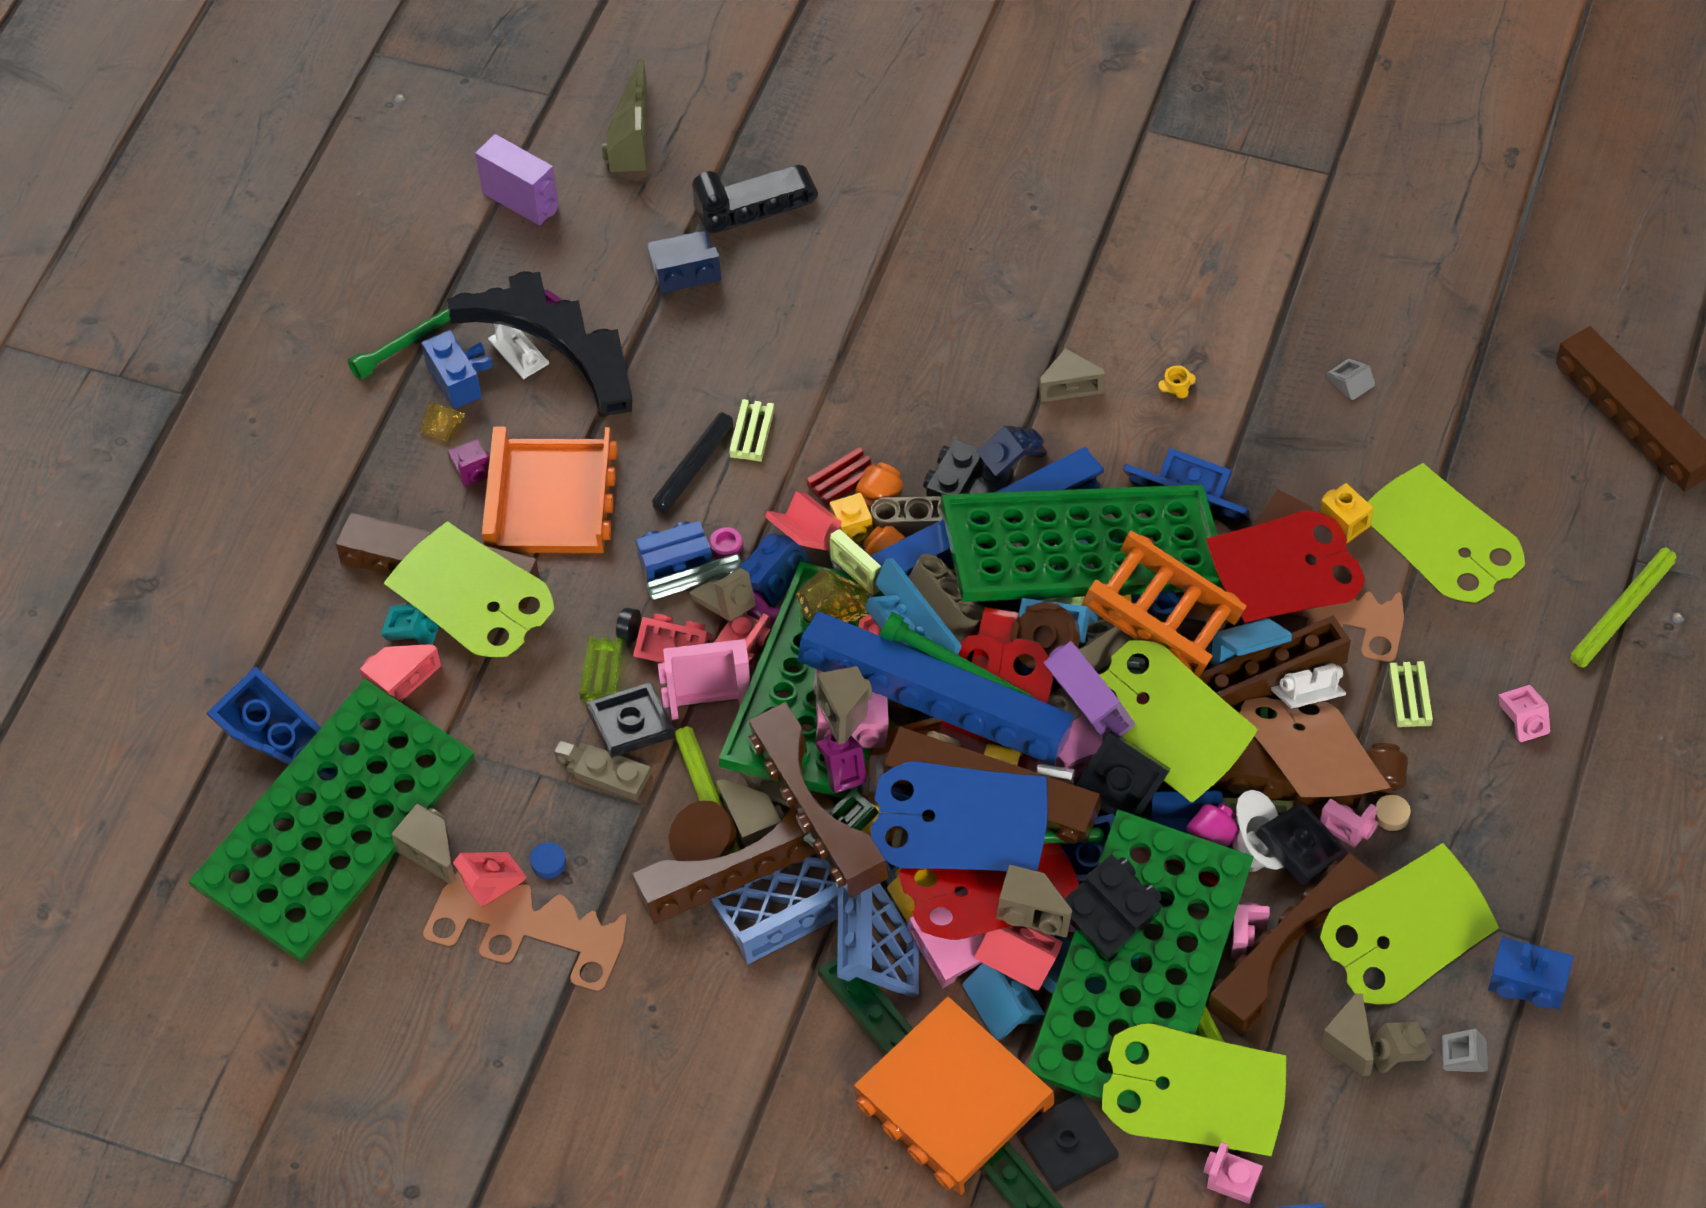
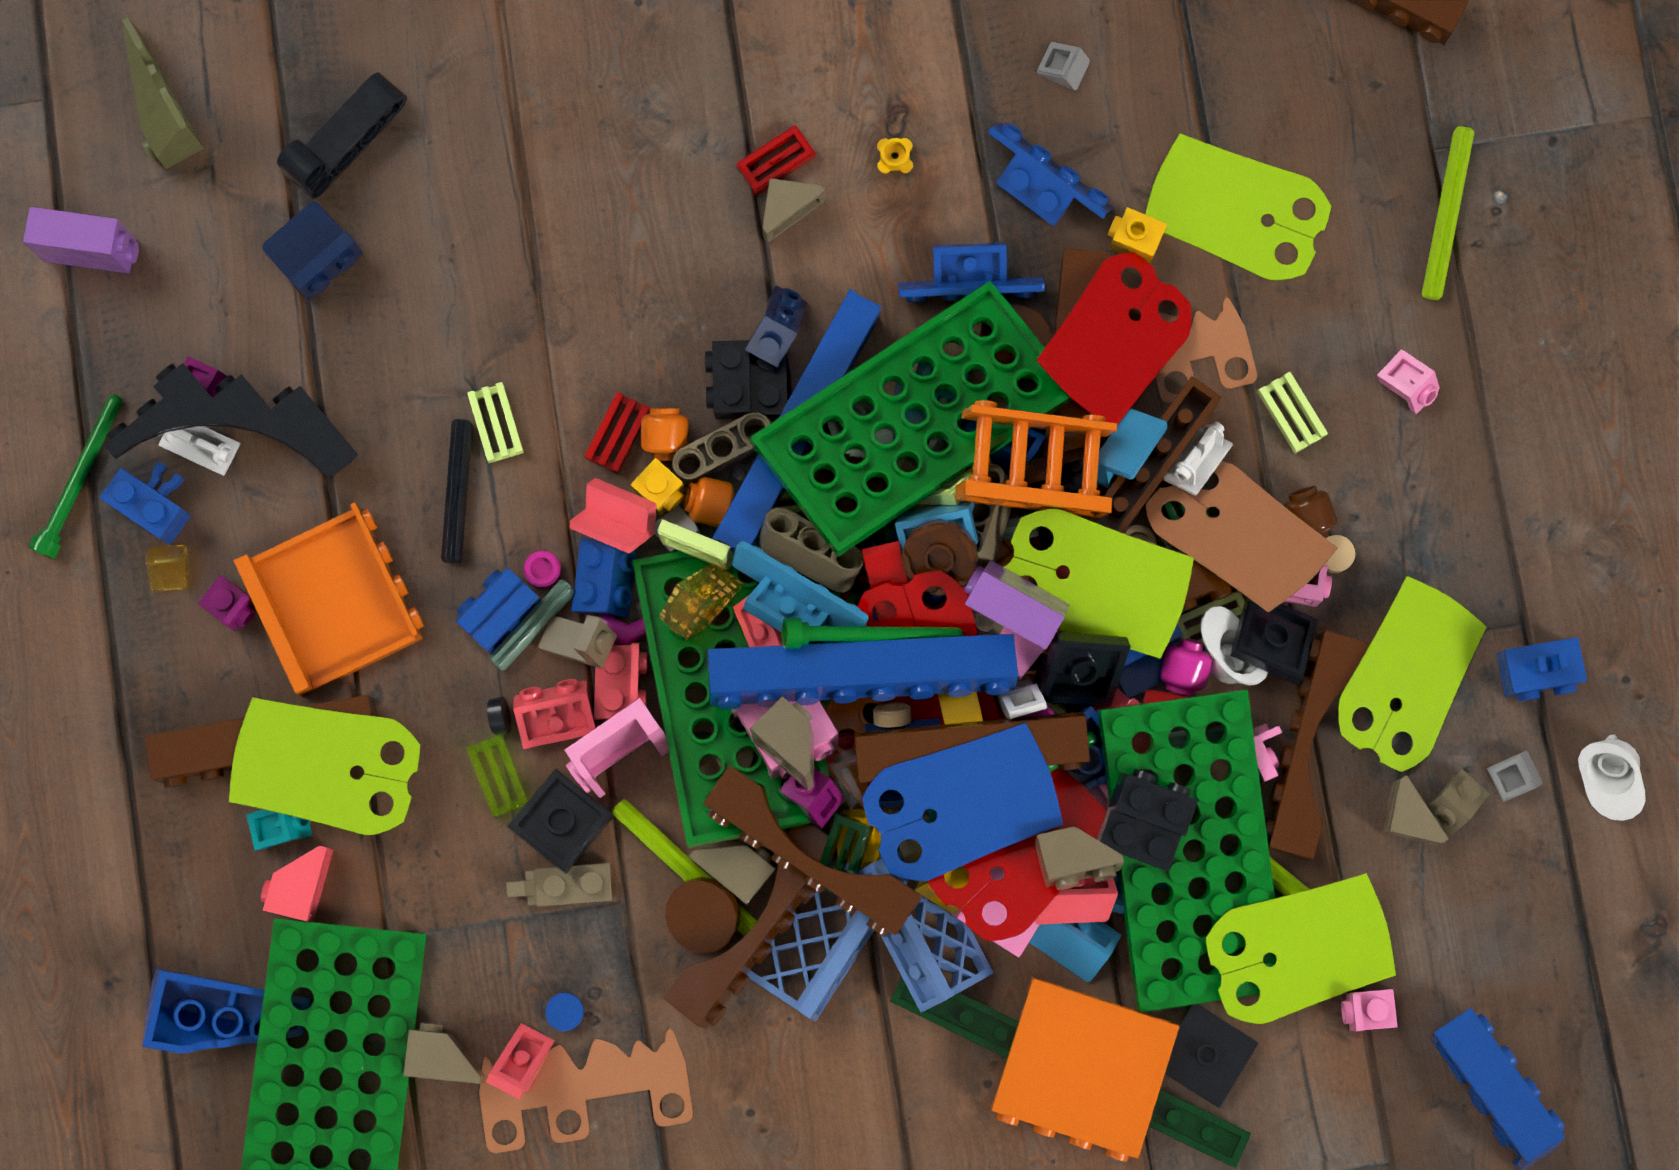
camera: 30 degrees left, 25 degrees up
(1093, 352) = (782, 172): none -> red tile
(1285, 446) = (1042, 182): none -> blue bracket
(1550, 1084) = (1613, 778): none -> white piece

